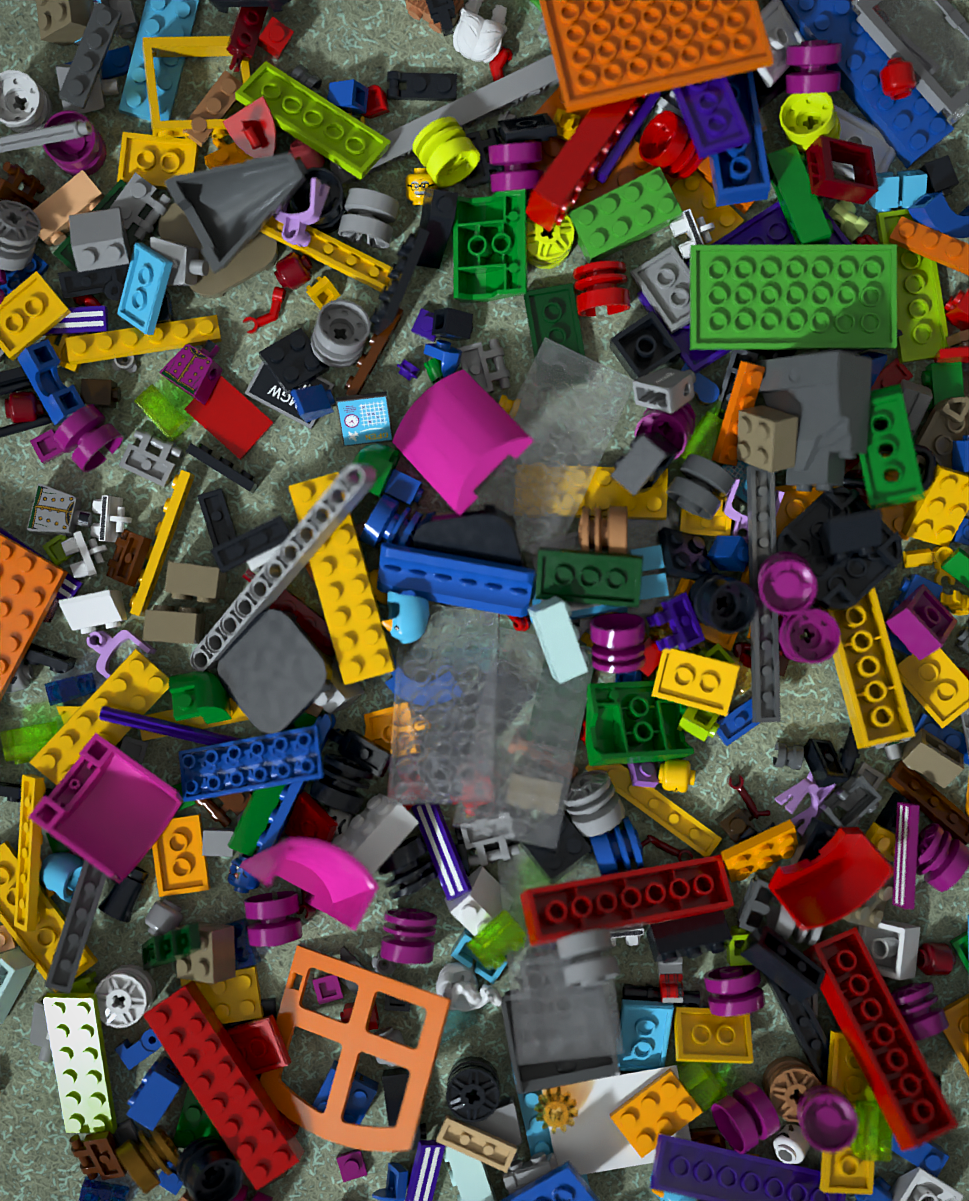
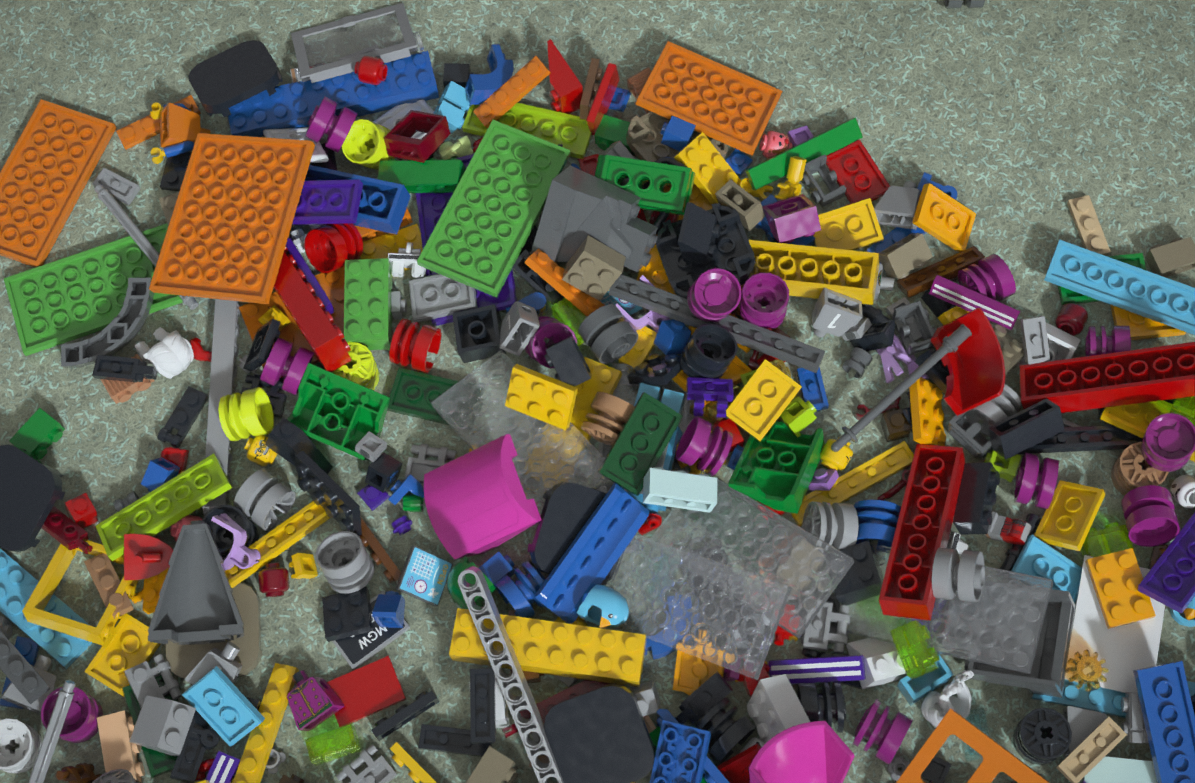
camera: 60 degrees left, 20 degrees down
(277, 300) = (300, 619): red arm -> none
(469, 299) = (371, 446): none -> light grey plate
(595, 451) = (541, 397): none -> yellow plate
(641, 247) = (398, 305): none -> light grey plate
(824, 740) = (857, 330): none -> light grey plate
(830, 714) = (835, 313): none -> light grey torso
(840, 850) = (949, 345): none -> dark grey bar
(889, 934) = (1035, 340): none -> light grey plate
(915, 559) = (746, 205): none -> dark tan brick

